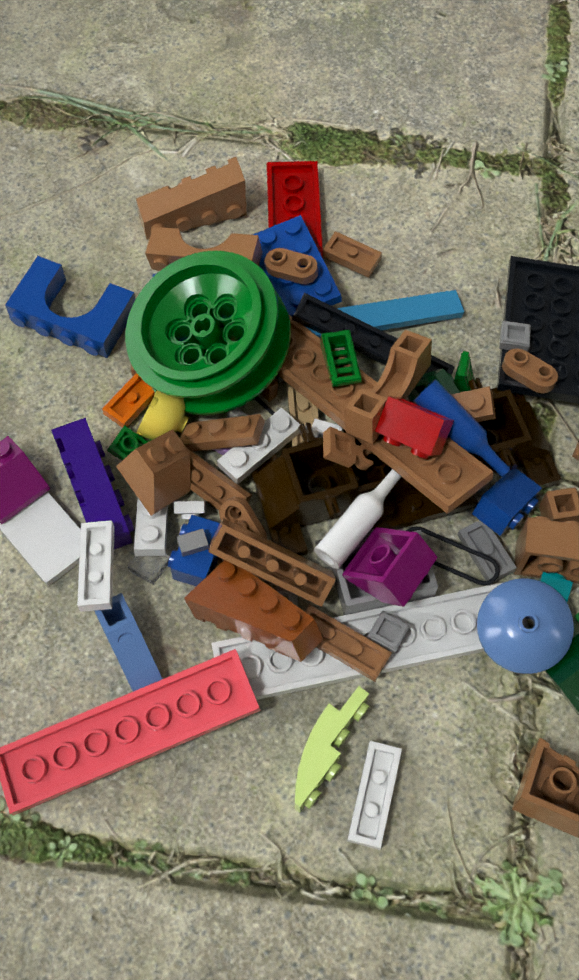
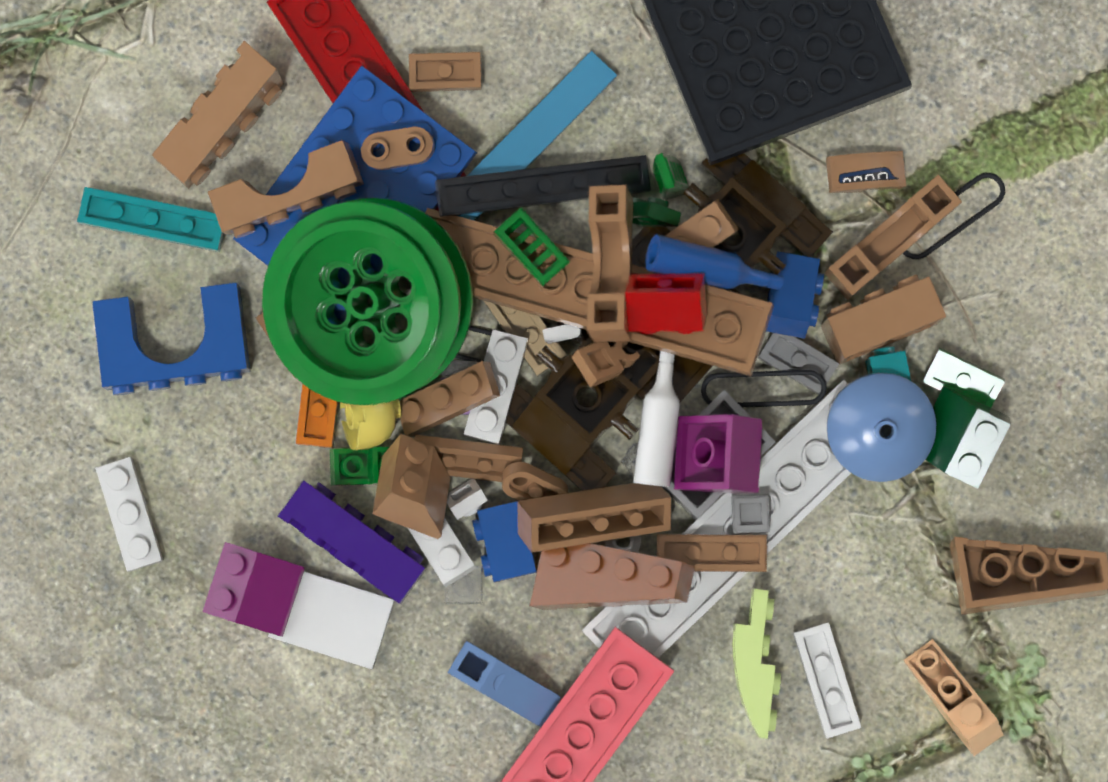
camera: 30 degrees left, 20 degrees up
(96, 566) = (423, 629): white plate -> none
(109, 238) = (150, 219): none -> teal plate
(192, 542) = (500, 542): light grey piece -> none
(471, 875) = (954, 697): none -> light nougat slope
(514, 336) = (696, 89): light grey tile -> none
(528, 370) = (736, 130): medium nougat plate -> none

